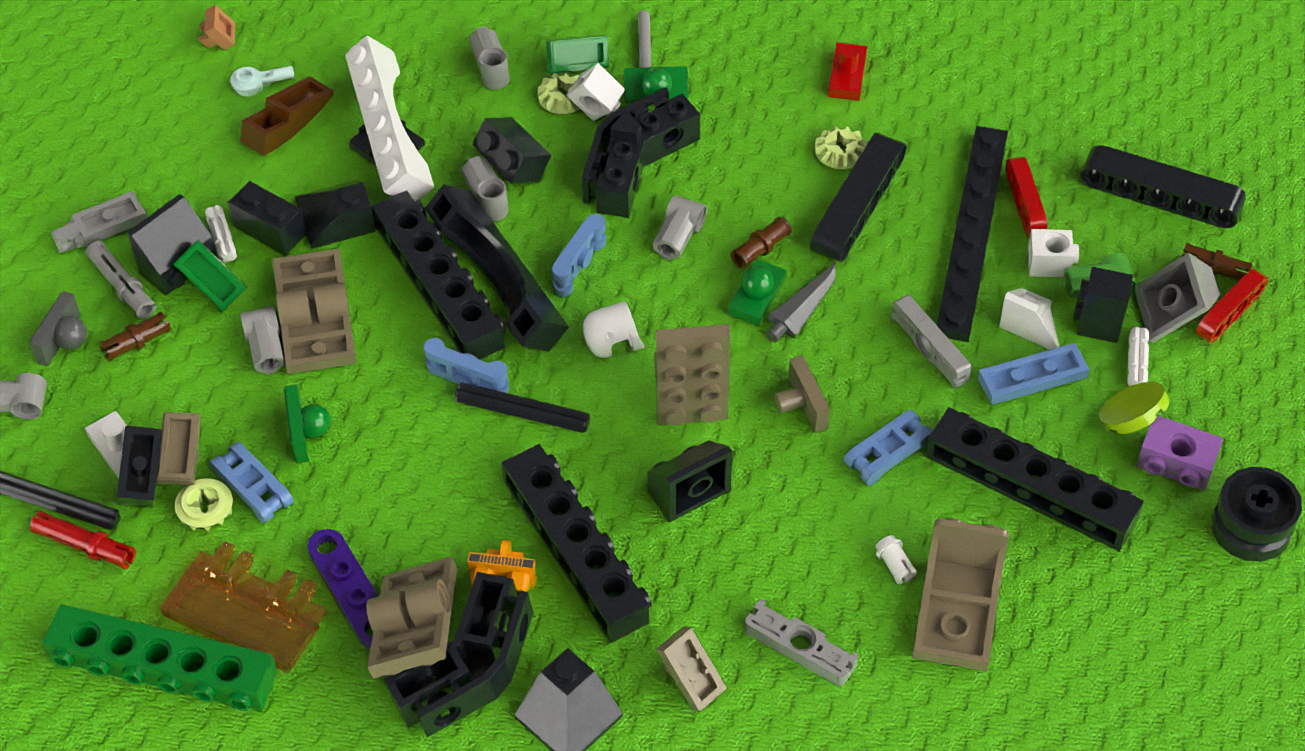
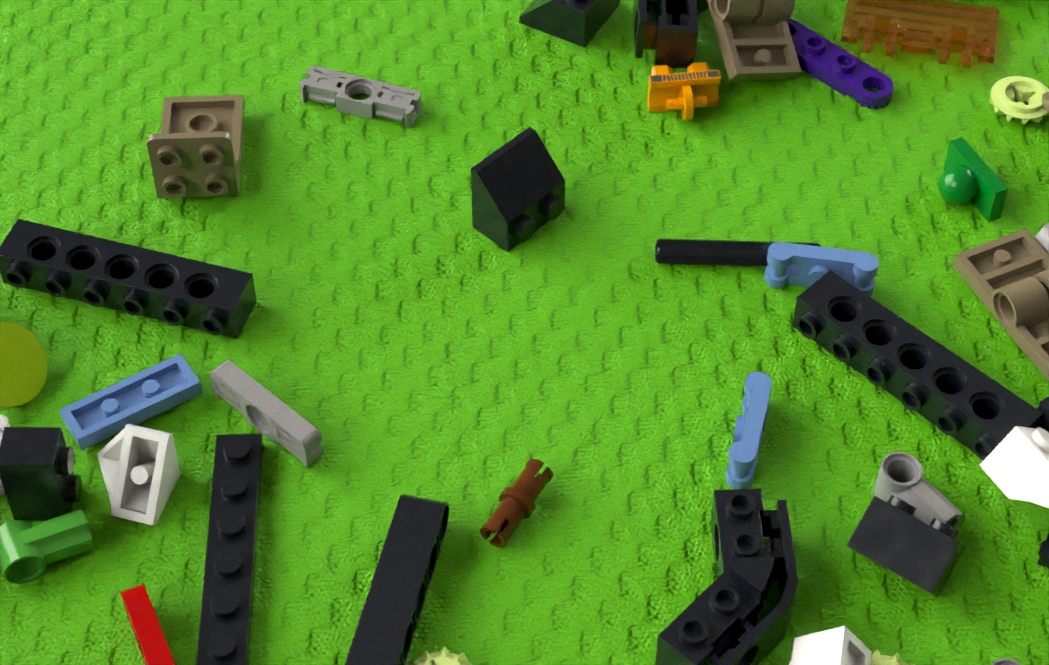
camera: 165 degrees right, 5 degrees down
(251, 481) = (989, 125): medium blue plate -> none
(526, 306) = (775, 333): black arch -> none
(608, 326) = (677, 333): white helmet -> none
(614, 615) = (623, 129): black brick -> none
(681, 220) = (633, 506): light grey piece -> none
(691, 668) = (465, 36): tile -> none
(692, 374) = (542, 233): dark tan plate -> none
(757, 291) = (503, 443): green tile -> none
(795, 312) = (446, 432): dark grey bar -> none
(804, 394) = (411, 318): dark tan tile -> none
(888, 446) = (297, 289): medium blue plate -> none
(896, 560) = (280, 184): white pin -> none
(1051, 252) = (117, 545): white brick -> none

